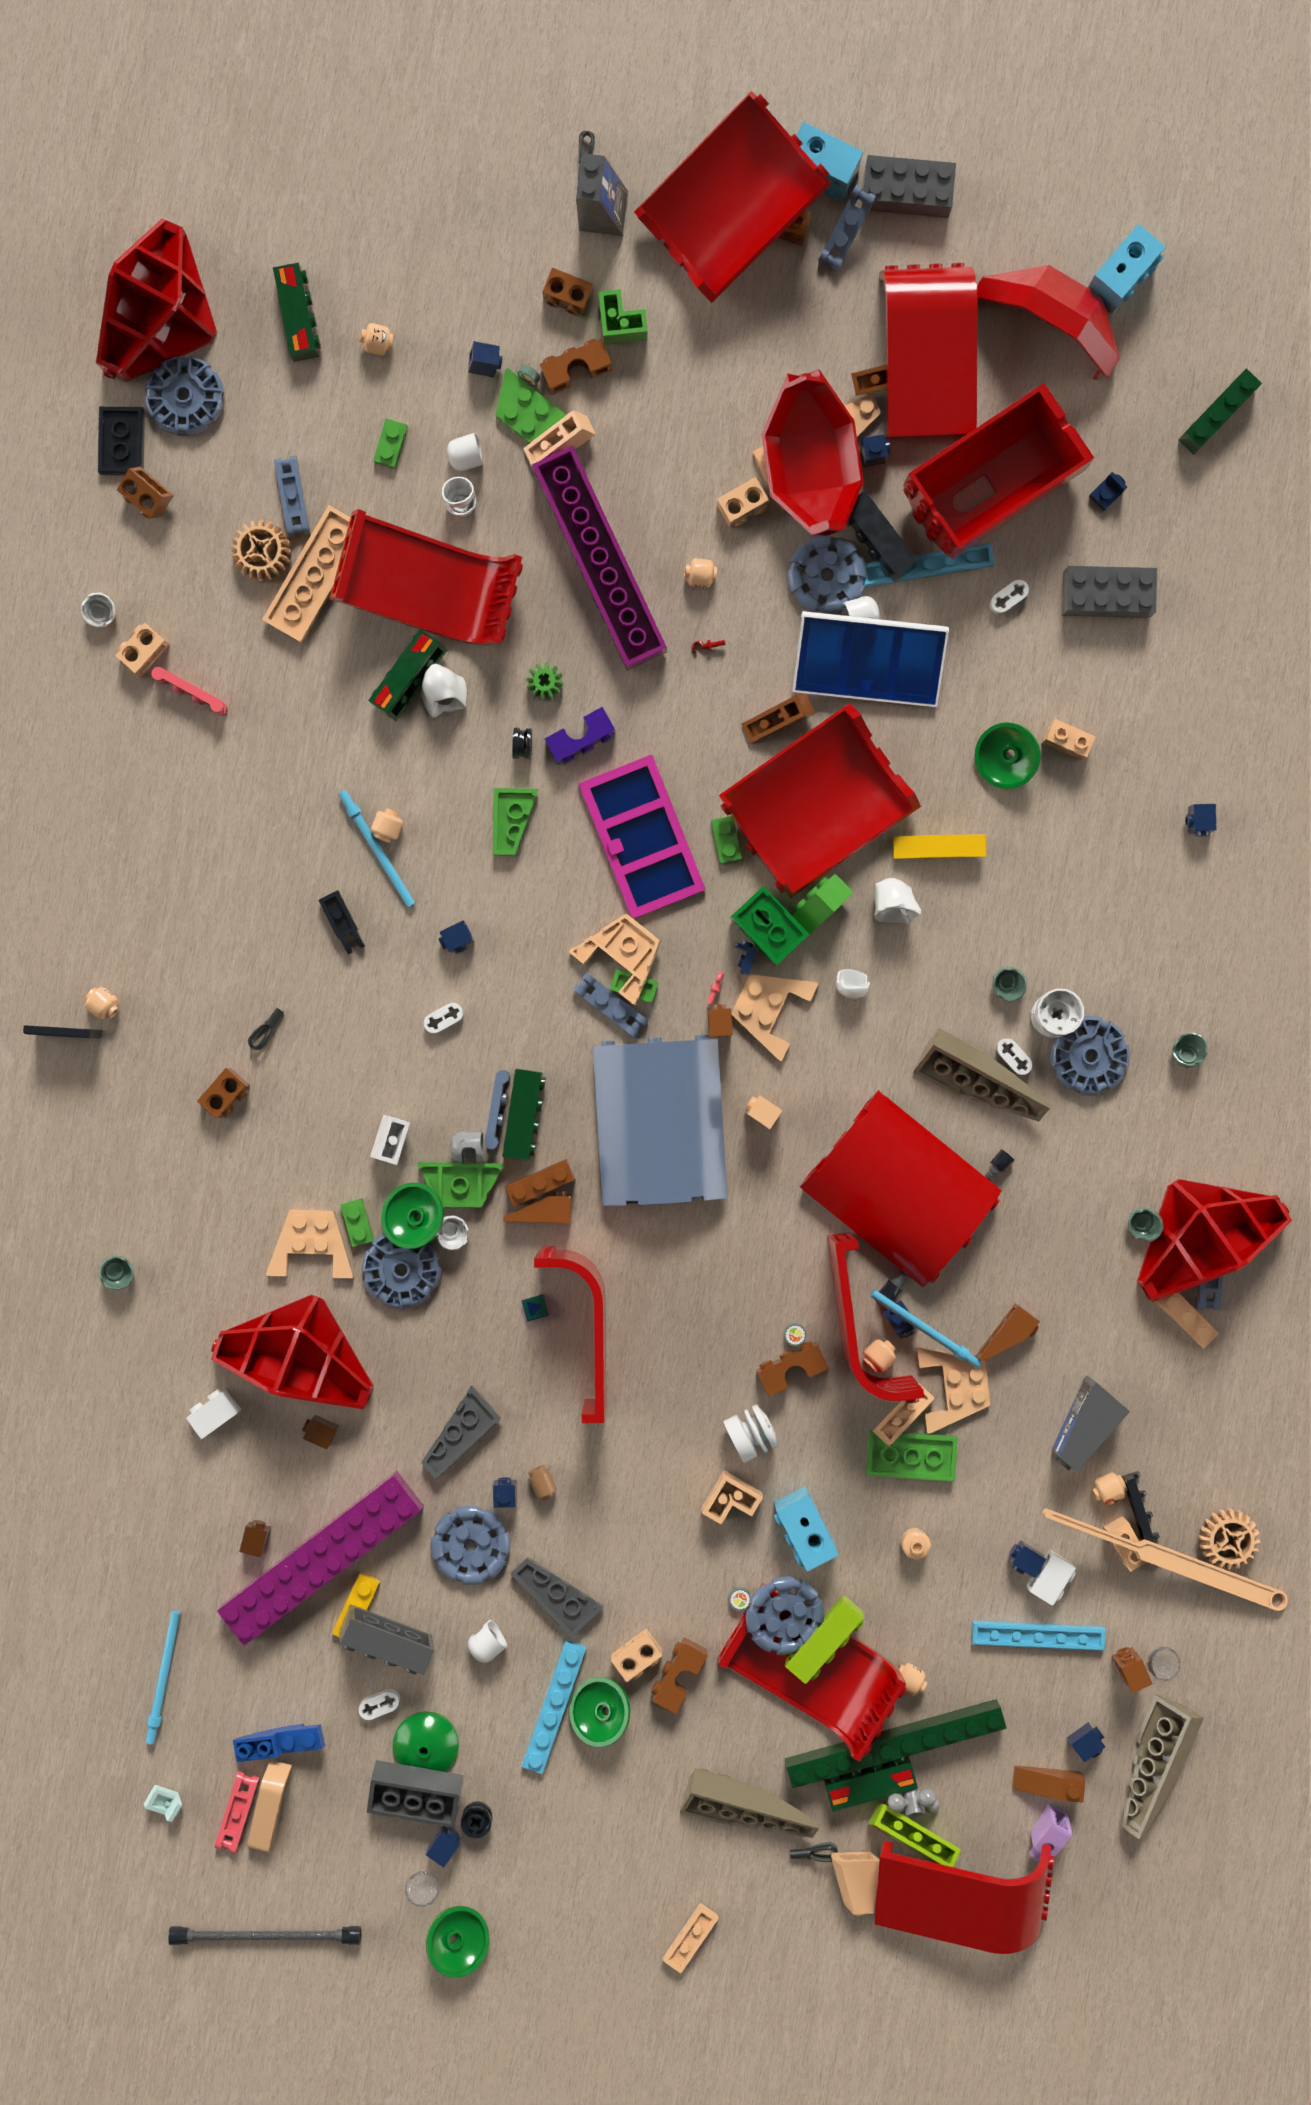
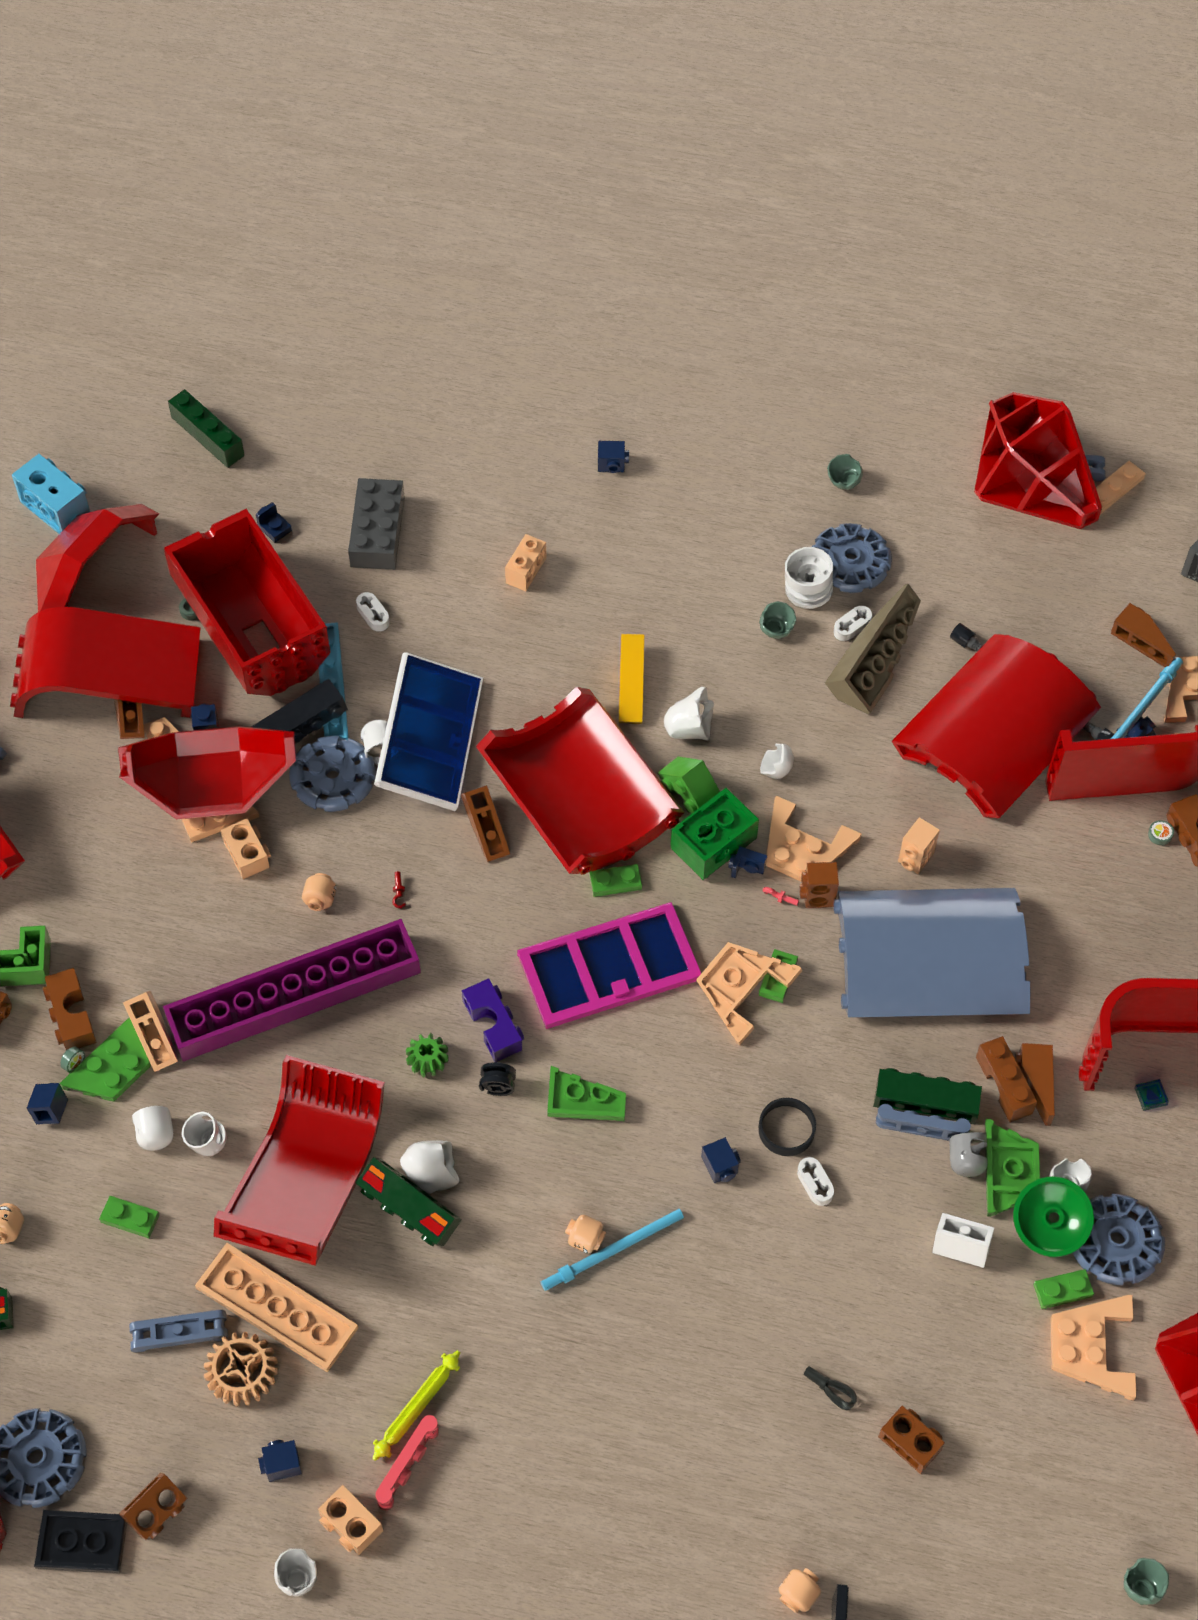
camera: 95 degrees left, 30 degrees down
(187, 590) = (280, 1460): none -> dark blue brick
(238, 695) = (416, 1405): none -> neon yellow wheel
(341, 919) = (698, 1292): black hinge -> none
(470, 987) = (791, 1102): none -> black tyre
(610, 1005) = (799, 1002): sand blue plate -> none
(994, 760) = (551, 603): green dish -> none
(1145, 1224) = (1022, 513): sand green hair -> none

